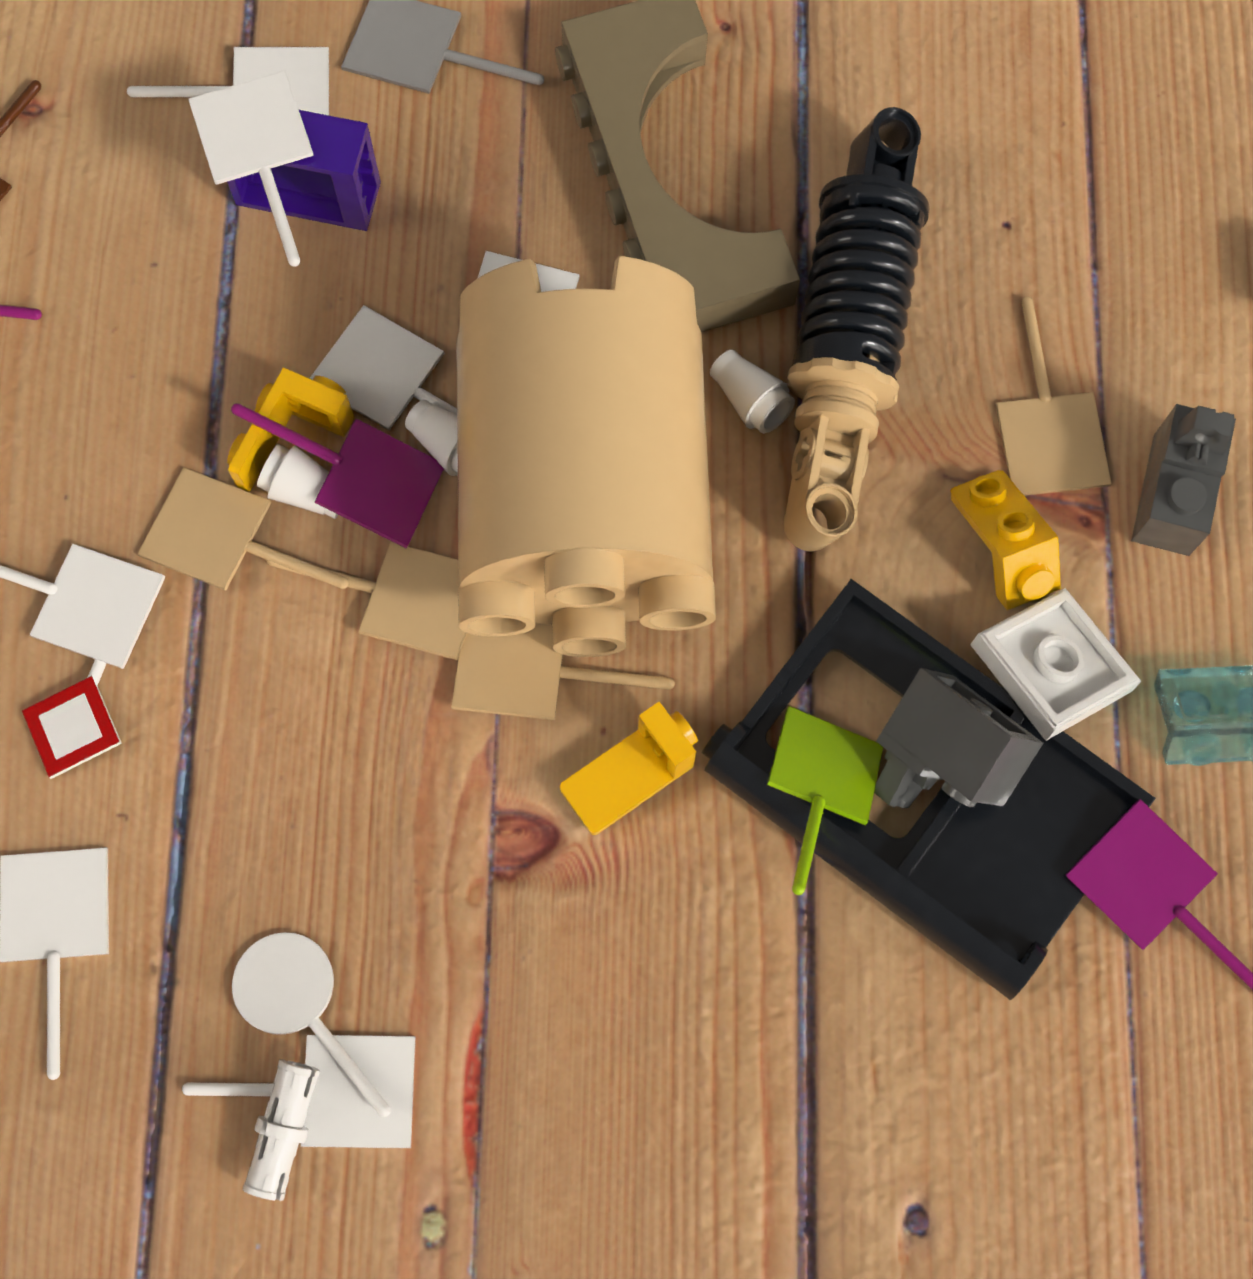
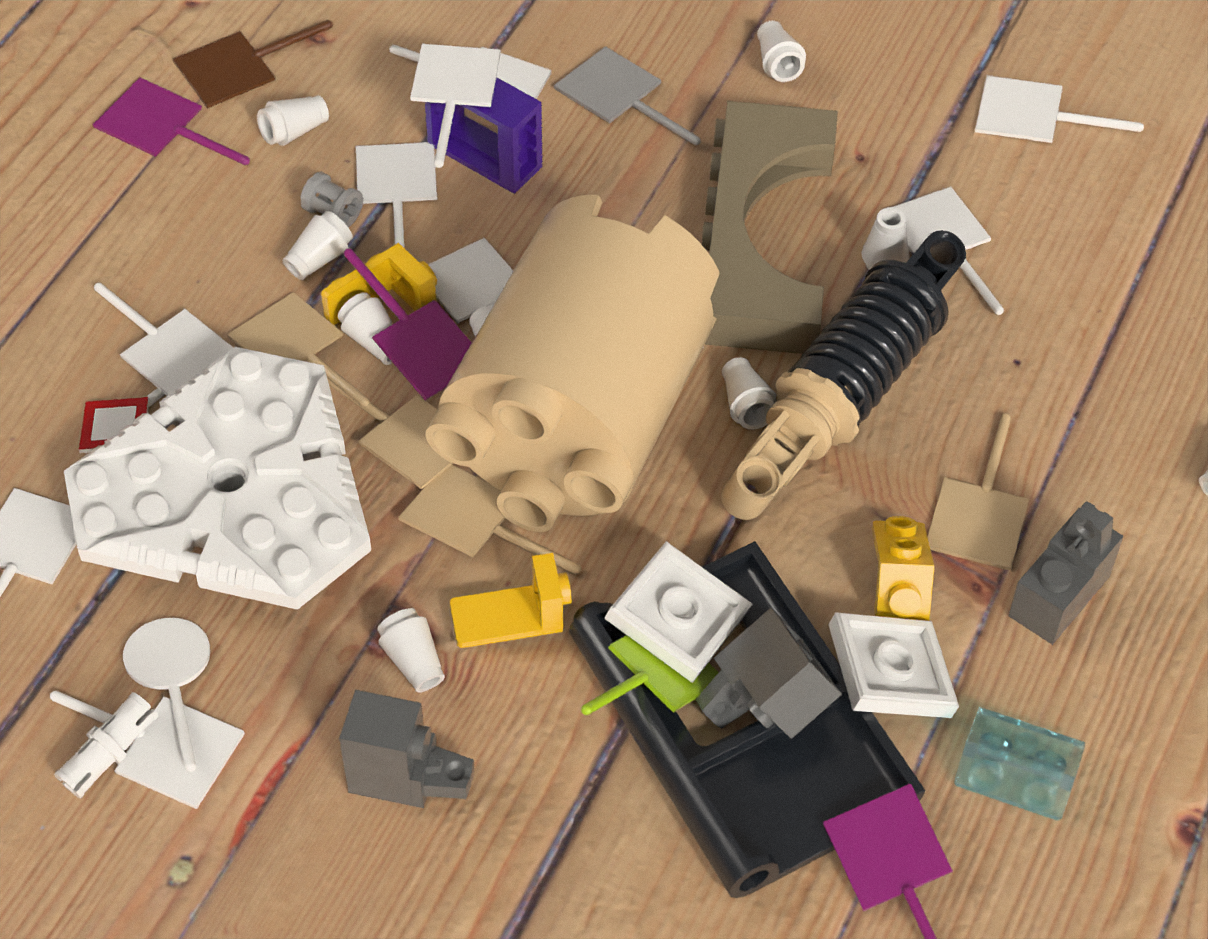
camera: 25 degrees right, 20 degrees down
(63, 240) = (290, 118): none -> white cone
(169, 332) = (322, 184): none -> light grey bush
(184, 399) = (318, 245): none -> white cone
(221, 264) = (396, 175): none -> white piece
(239, 675) = (242, 475): none -> white plate
(549, 865) = (411, 648): none -> white cone
(612, 1005) = (396, 756): none -> dark grey hinge
(815, 139) = (887, 238): none -> white cone
(815, 703) = (678, 611): none -> white tile
(850, 86) = (947, 212): none -> white piece

